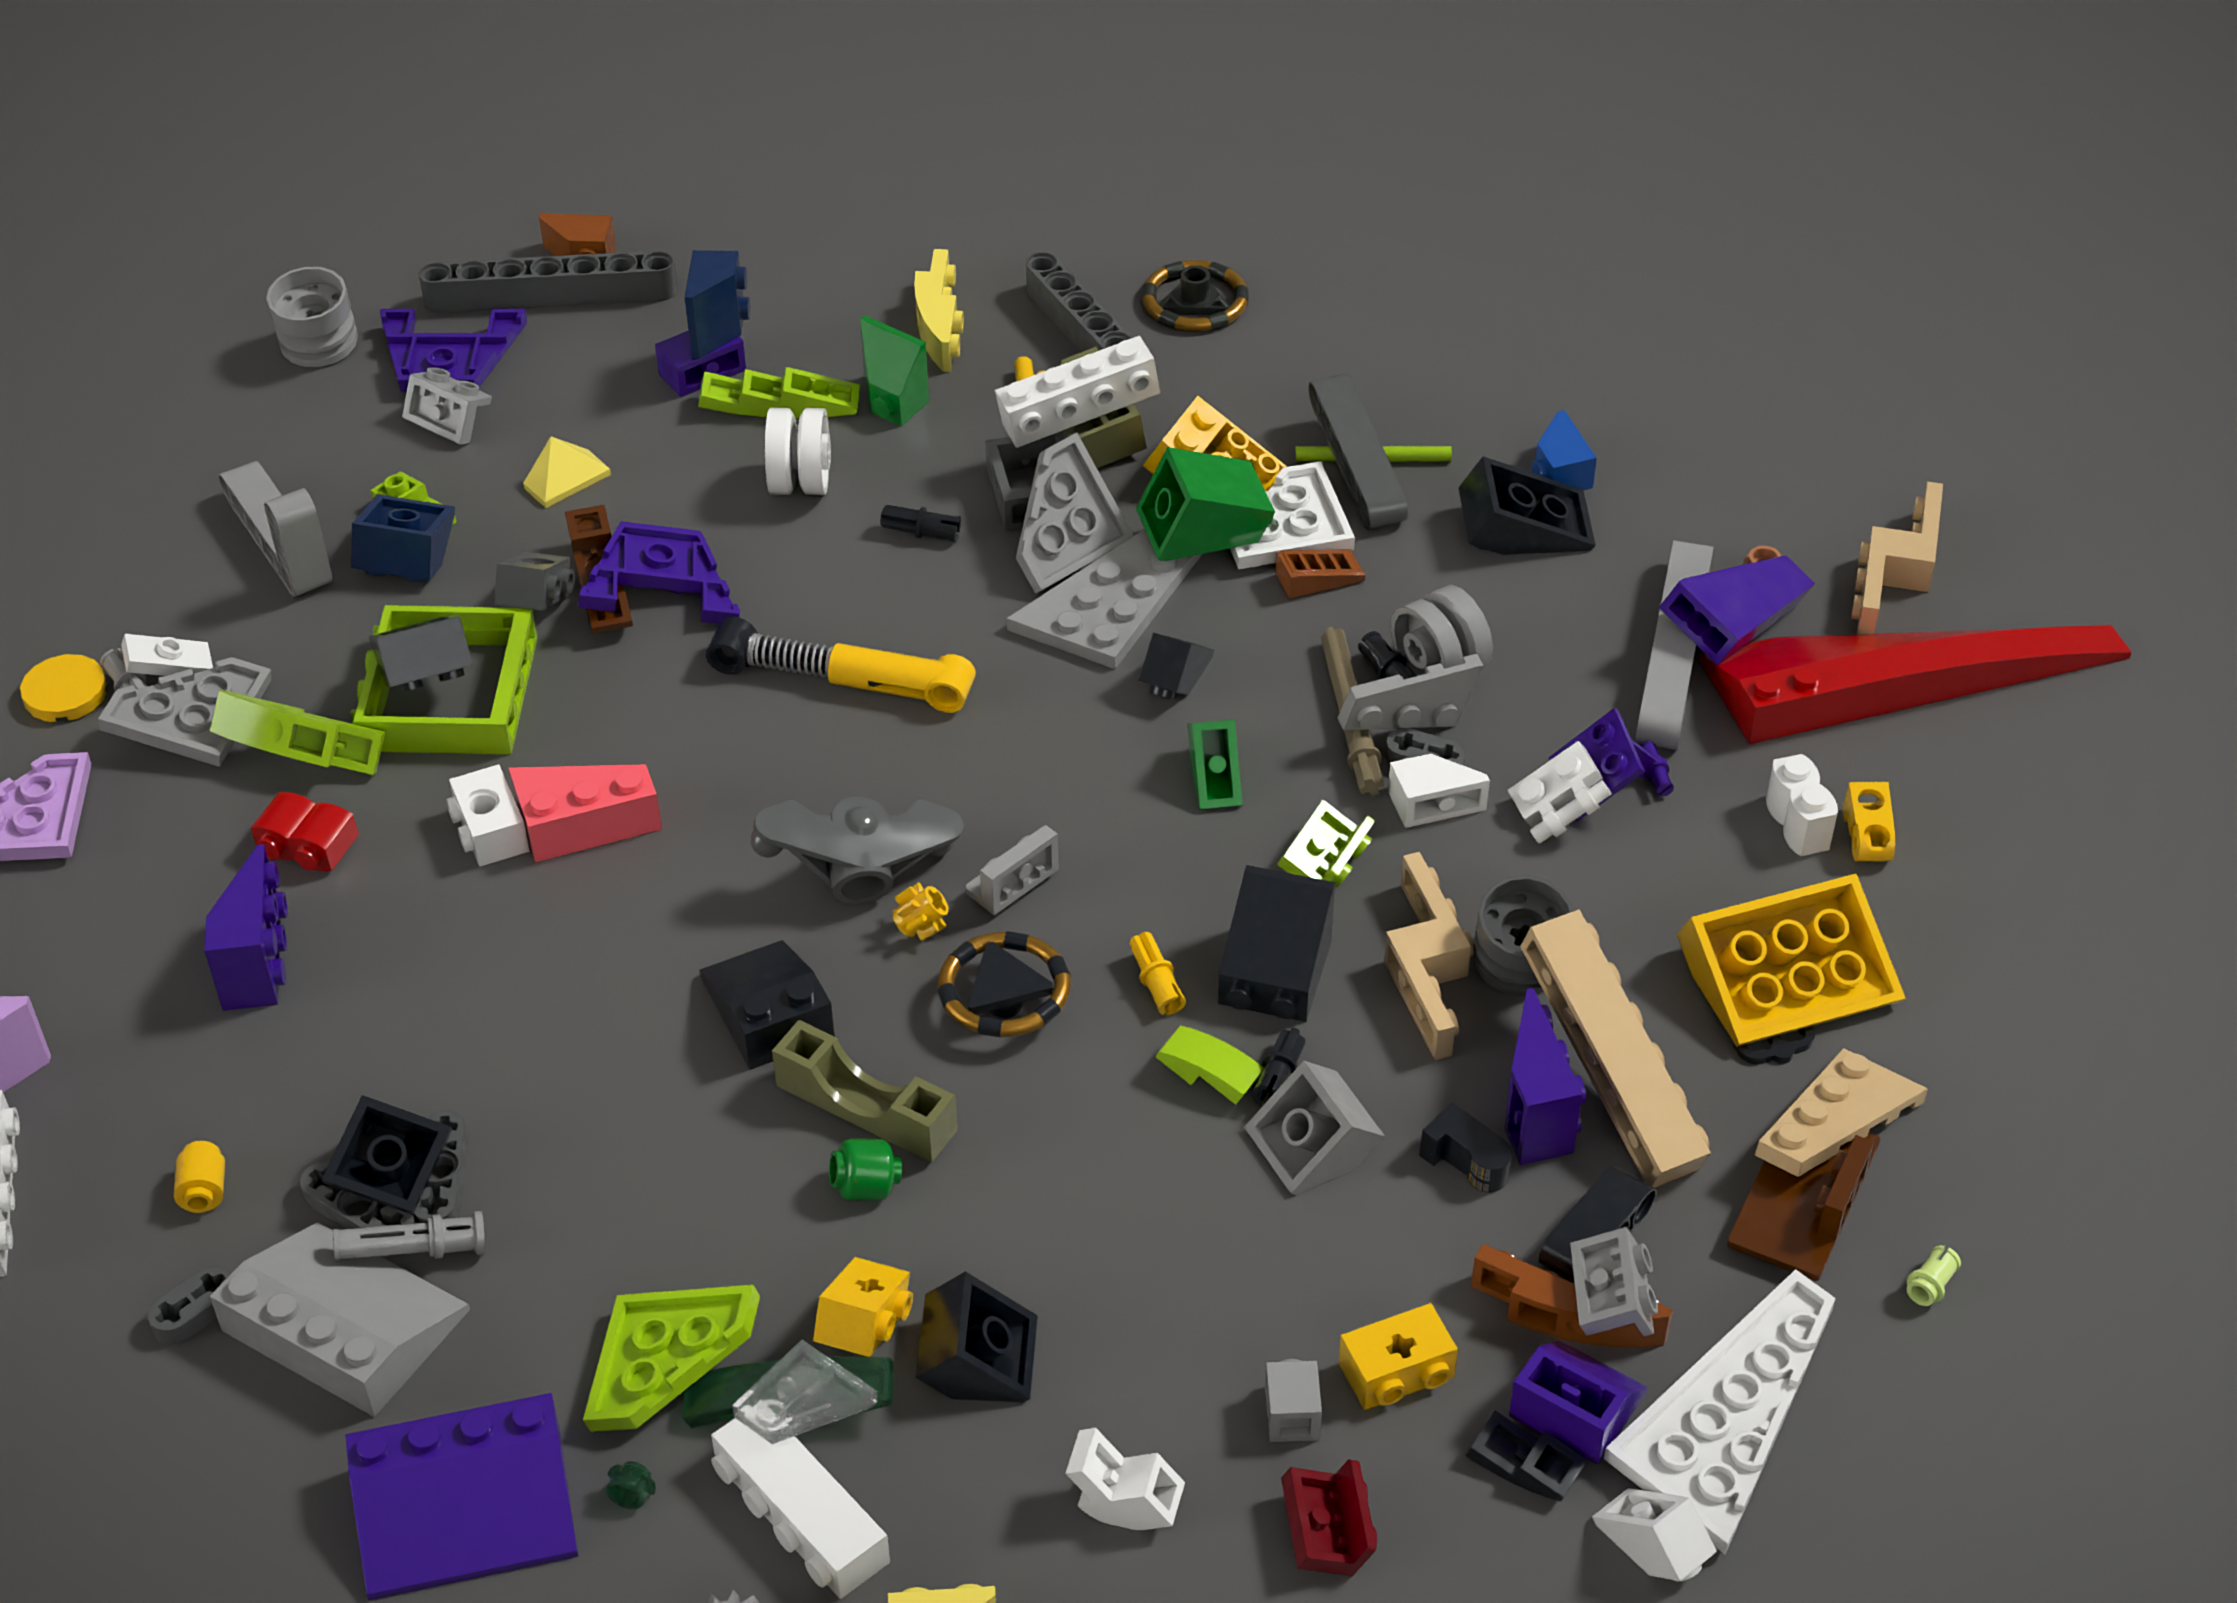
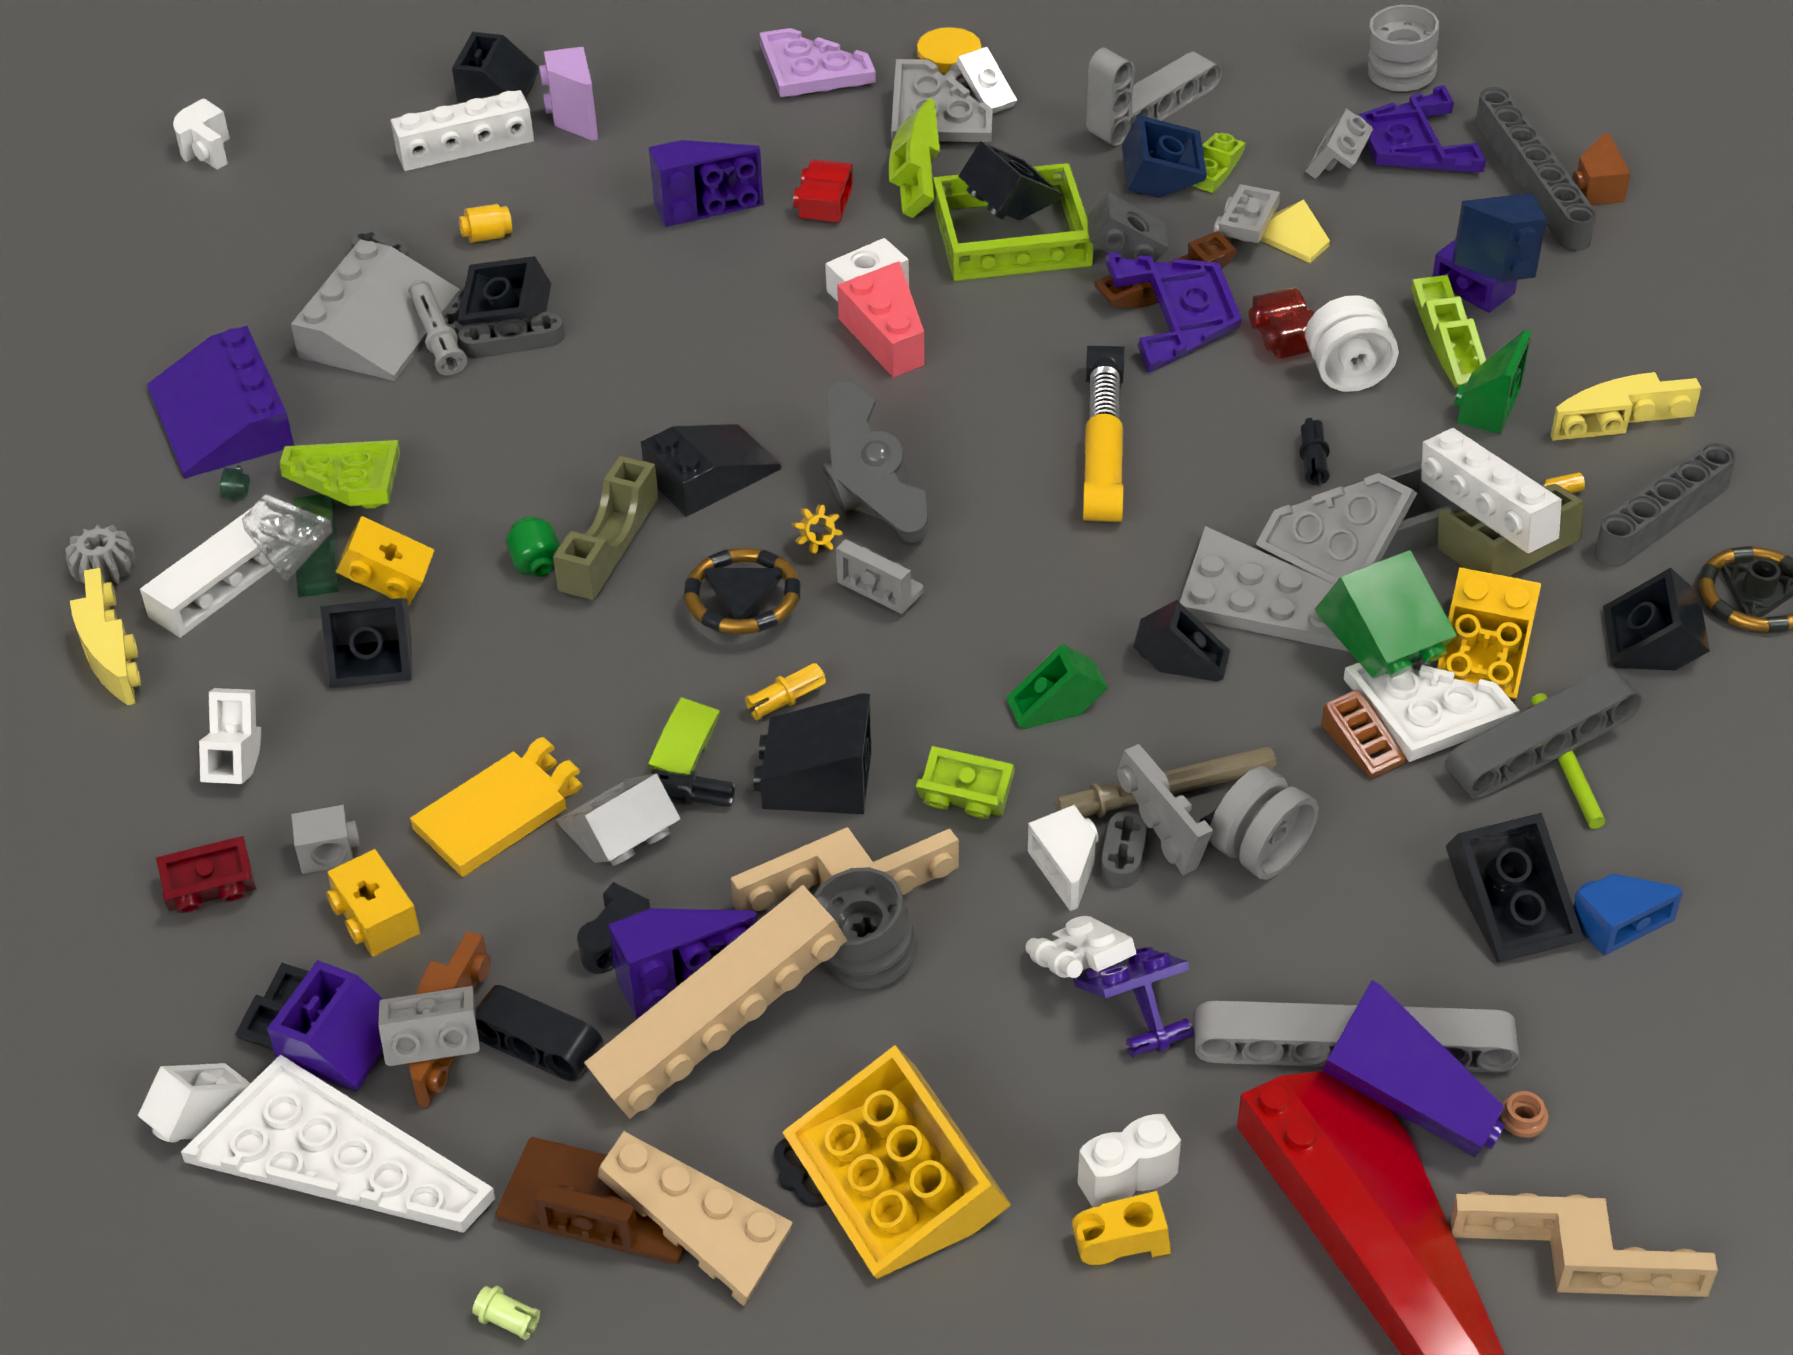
camera: 80 degrees right, 0 degrees up
(536, 493) = (1247, 213): none -> light grey bracket
(720, 500) = (1281, 321): none -> clear red brick
(1234, 359) = (1656, 625): none -> black slope
(1267, 1244) = (497, 807): none -> yellow tile

